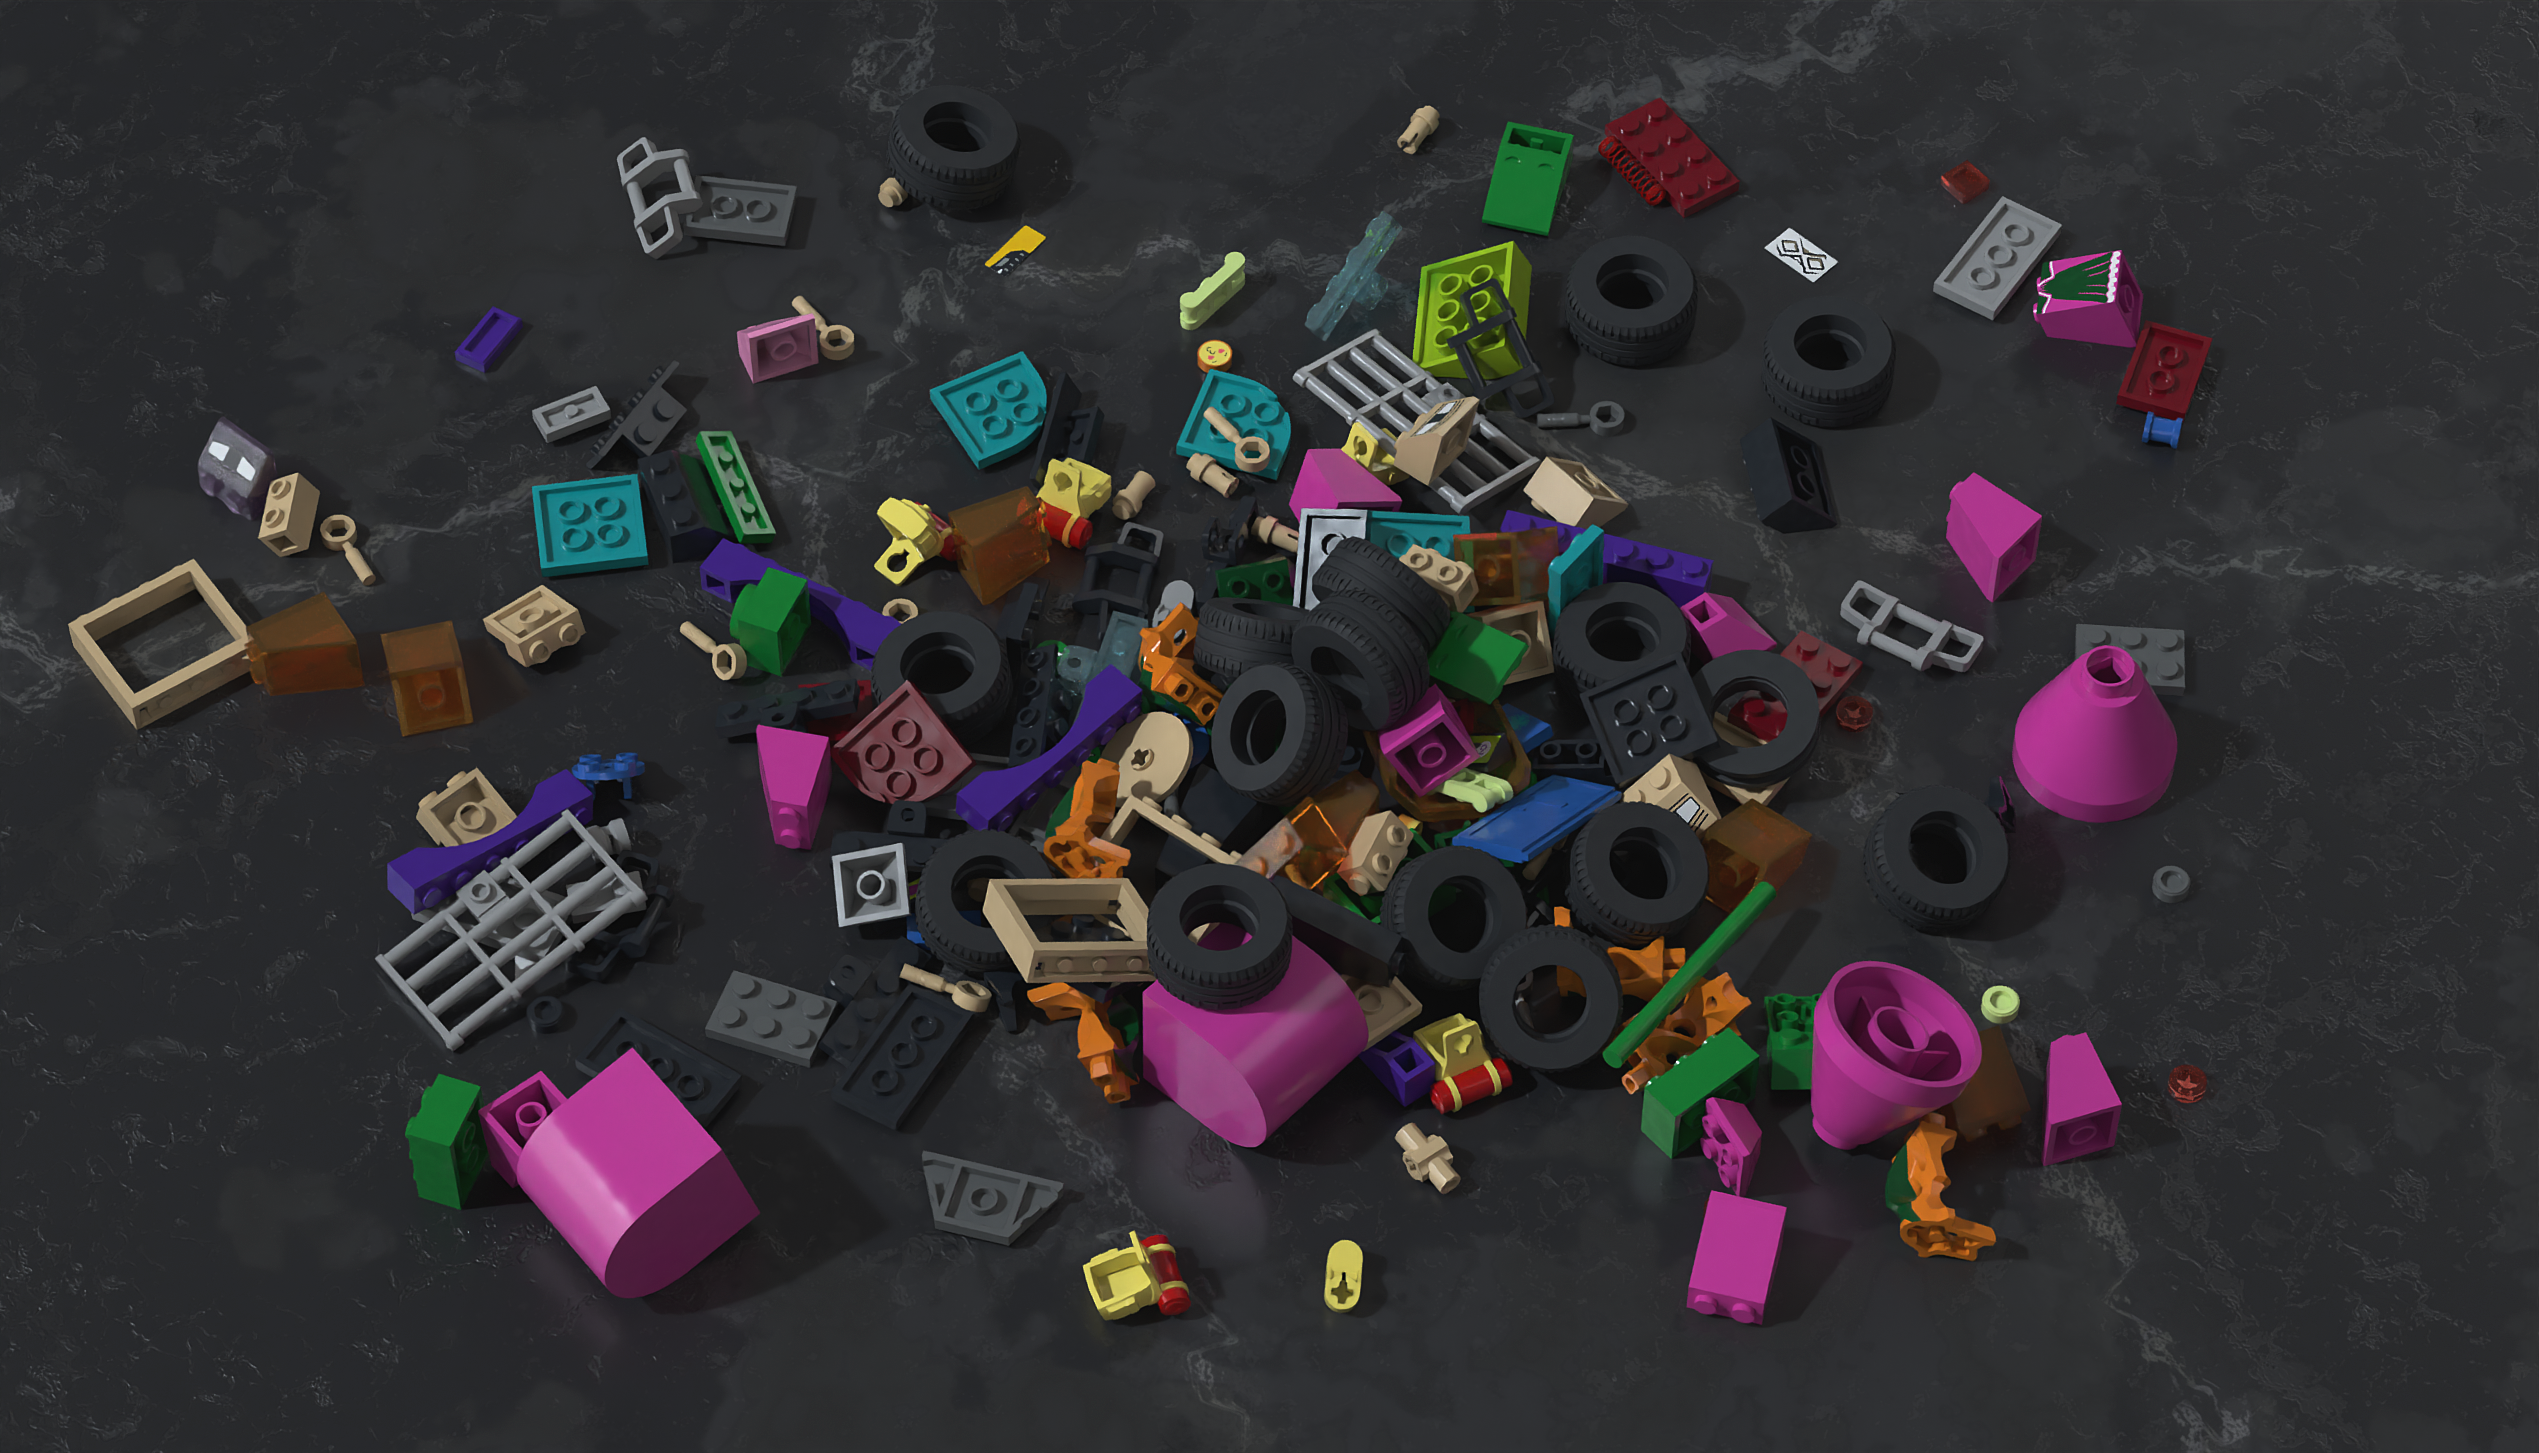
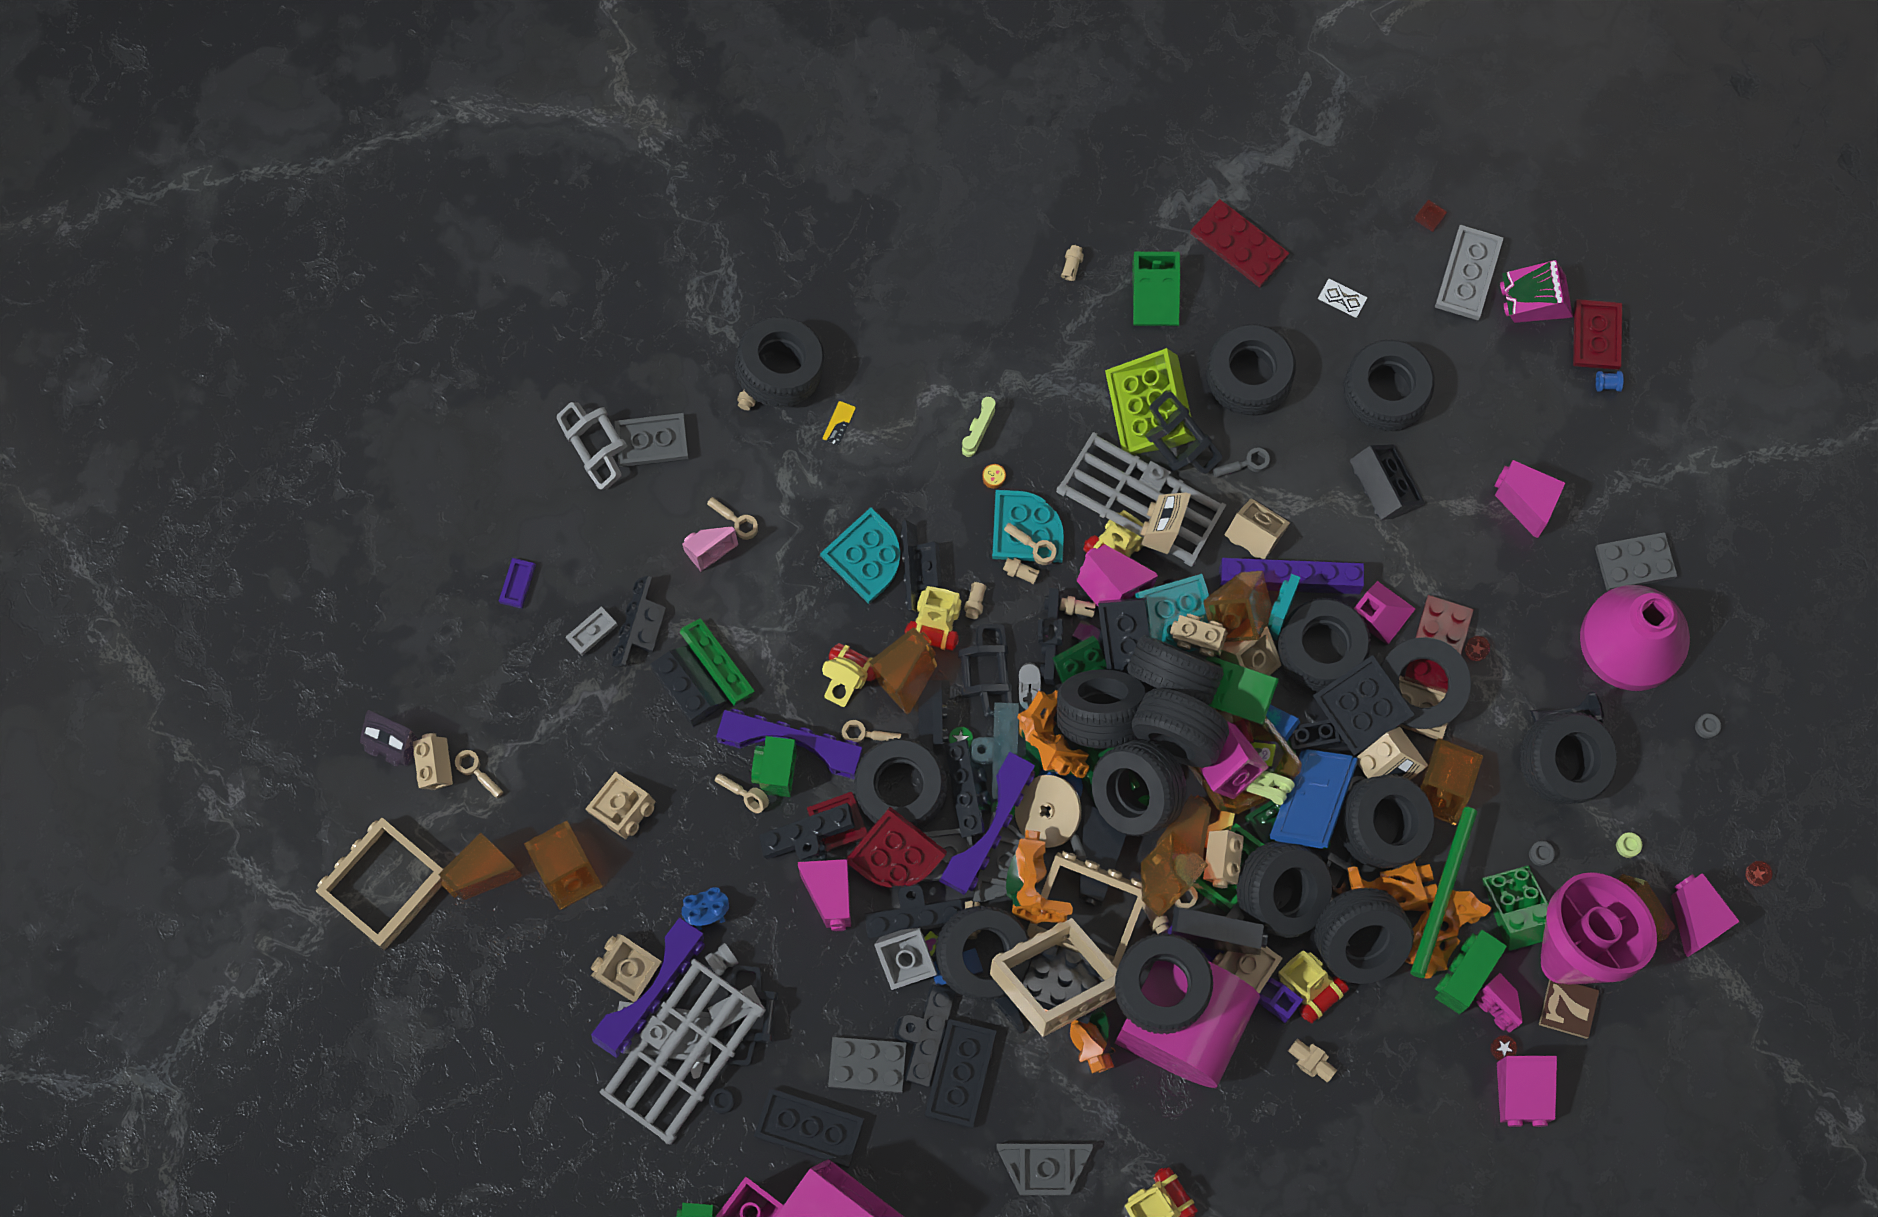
camera: 15 degrees left, 20 degrees up
(589, 525) = (631, 716): teal plate -> none
(965, 993) = (981, 1016): tan piece -> none
(1338, 1293) = (1285, 1152): light yellow piece -> none
(1356, 279) = (1072, 400): clear light blue plate -> none
(1652, 192) = (1236, 279): red piece -> none
(1838, 1185) = (1569, 1008): none -> reddish brown tile
(1915, 1190) = (1634, 1030): orange hips -> none
(1925, 656) = (1514, 571): light grey bar -> none

